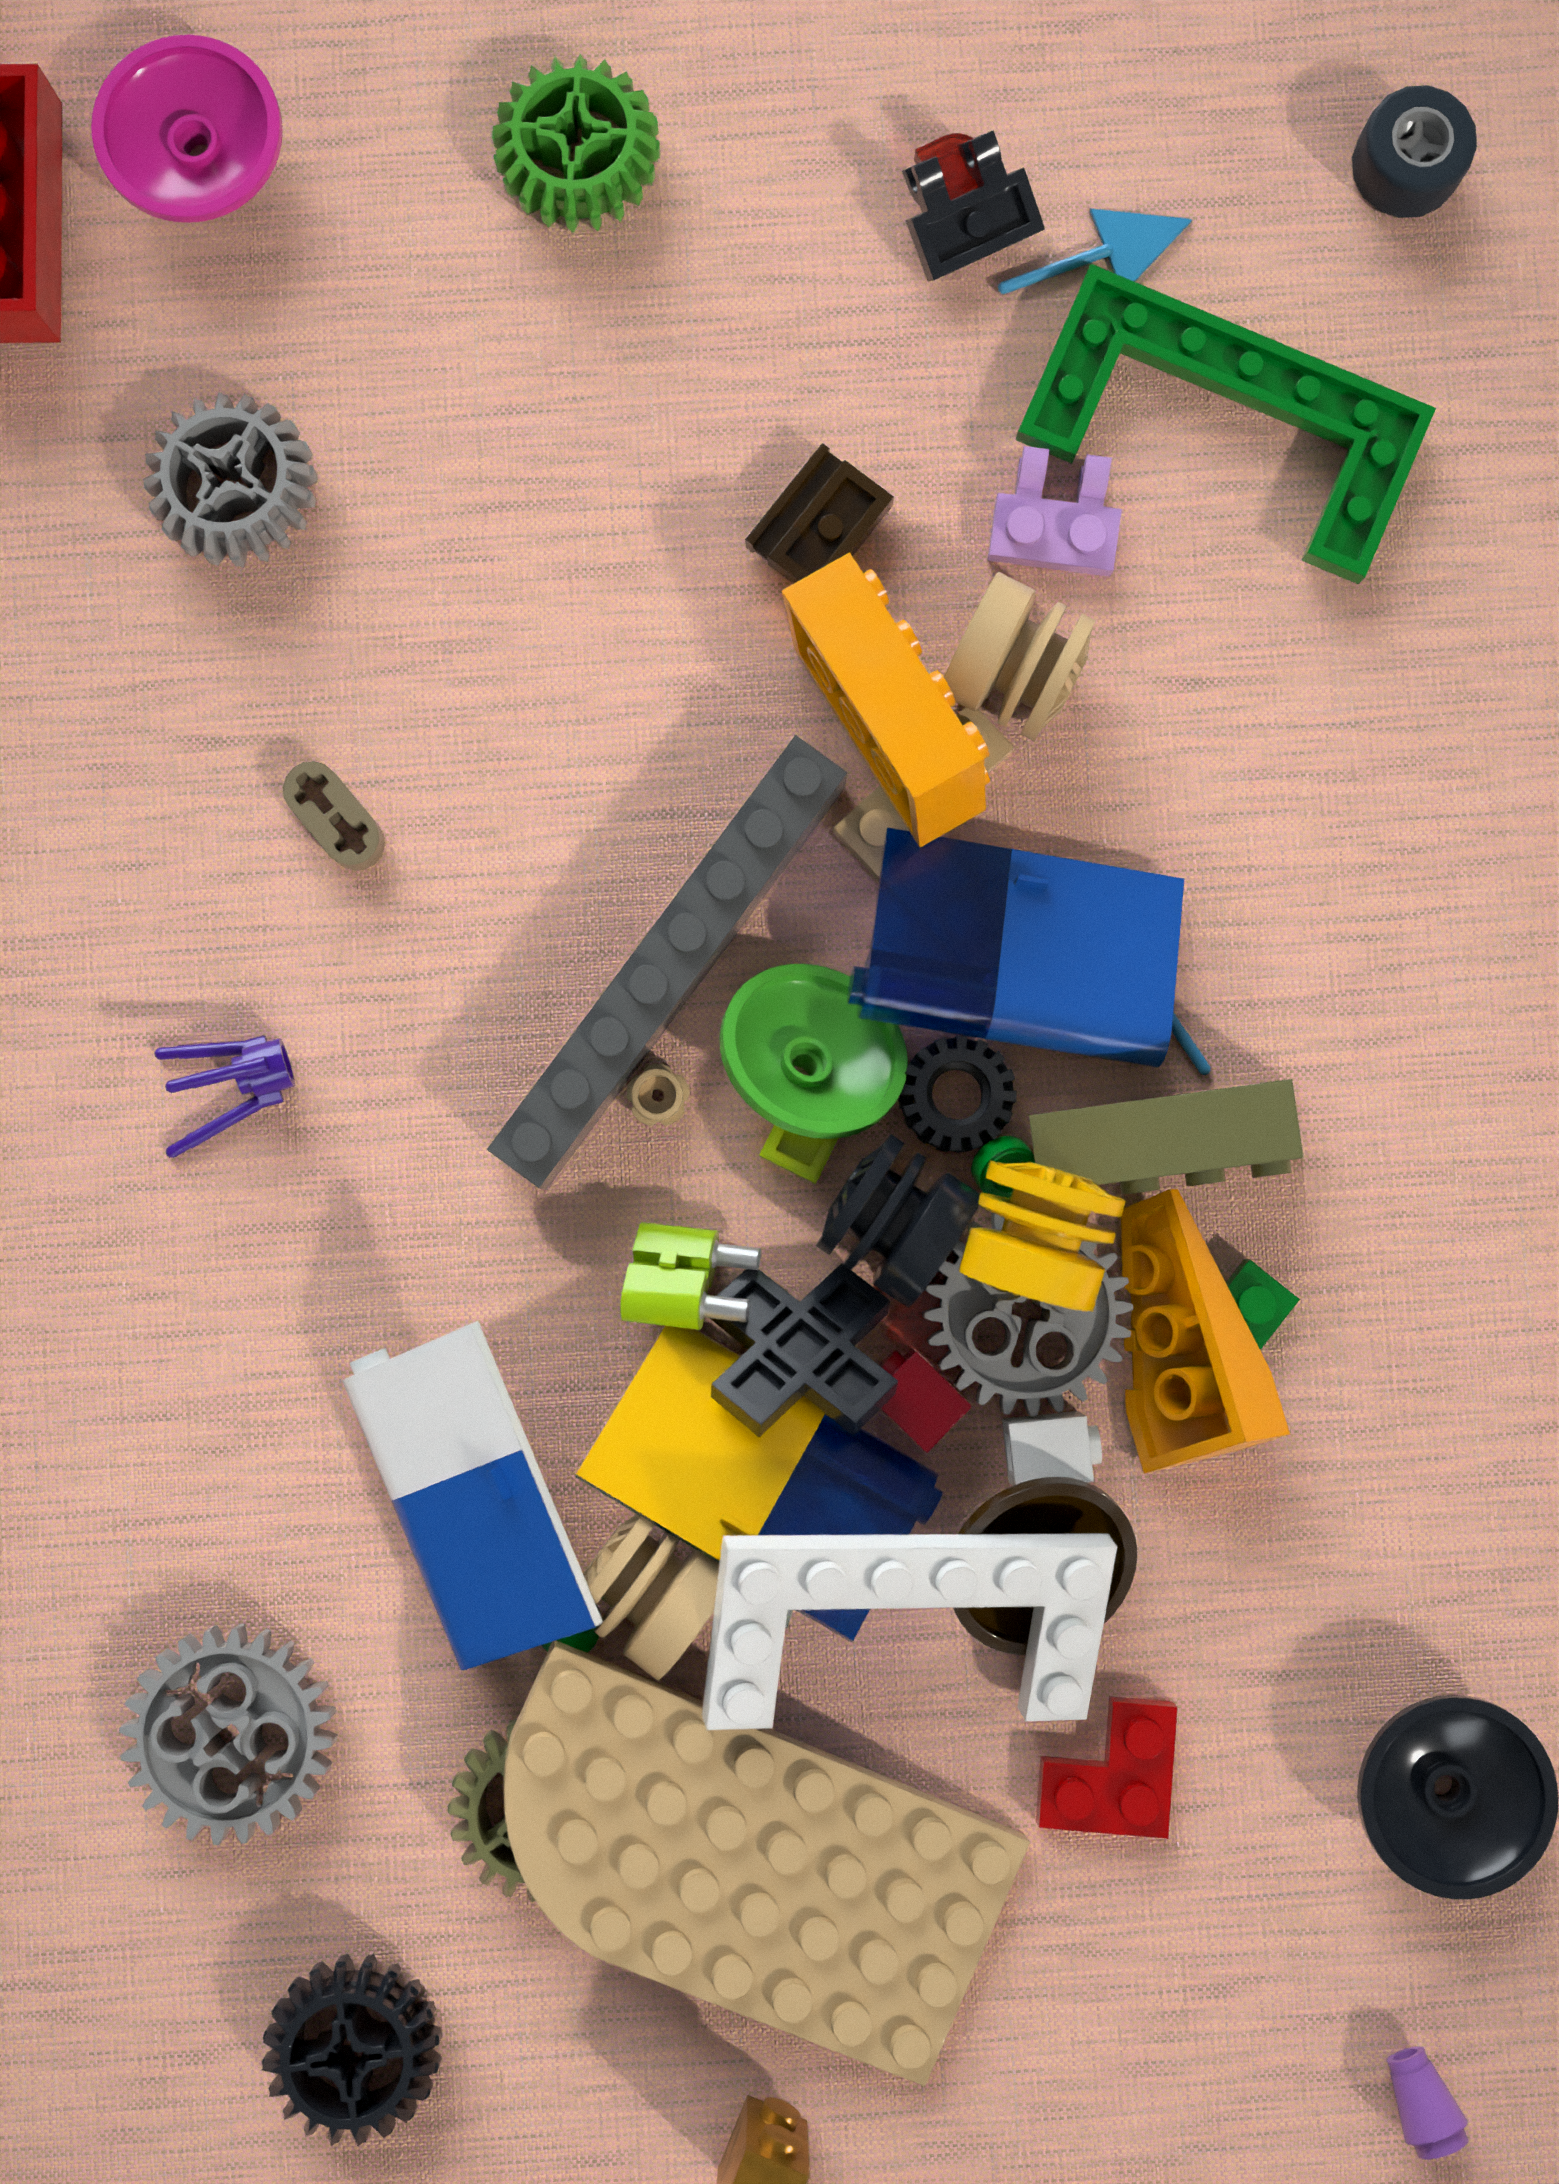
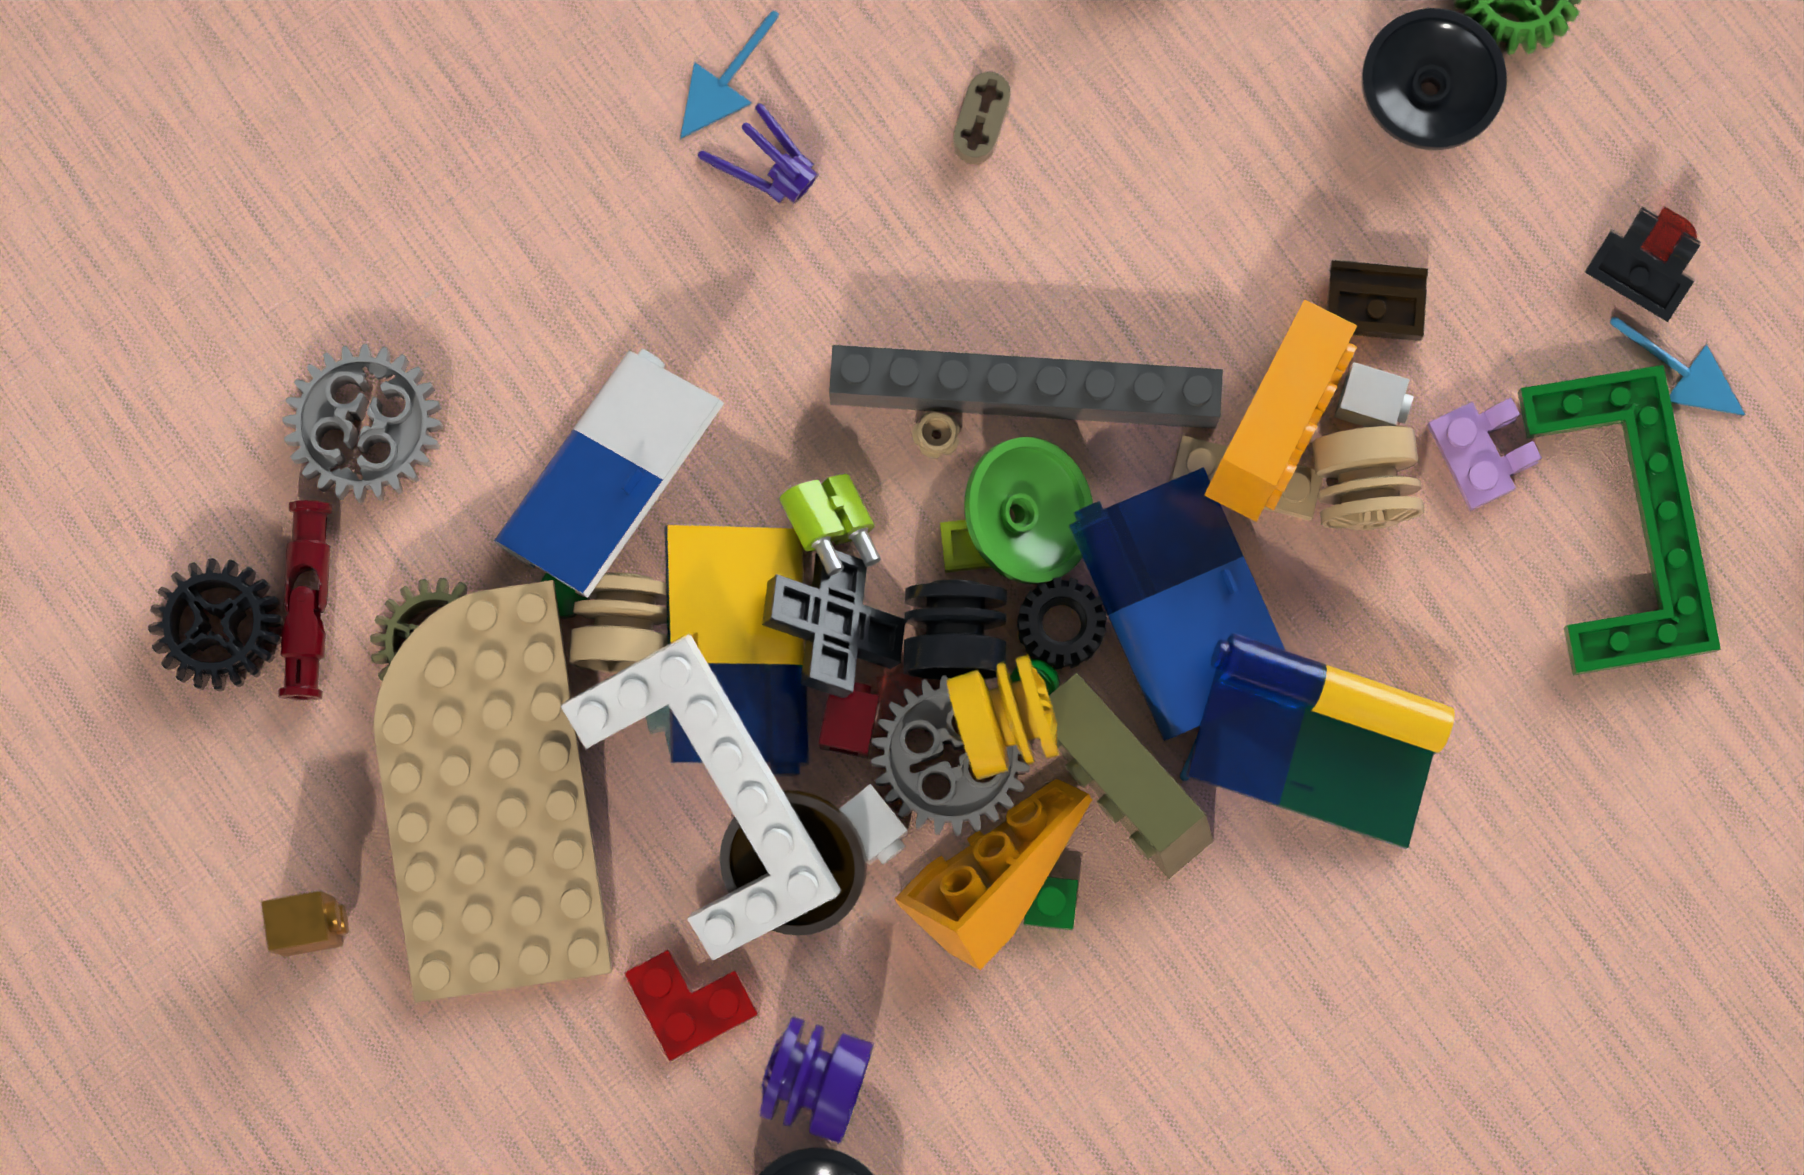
camera: 60 degrees right, 5 degrees down
(114, 1099) = (711, 97): none -> dark azure piece
(416, 1944) = (303, 629): none -> dark red piece
(613, 259) = (1440, 50): none -> black dish
(931, 591) = (1373, 397): none -> white brick
(1264, 901) = (1317, 740): none -> door
(1301, 1696) = (815, 1079): none -> dark purple wheel

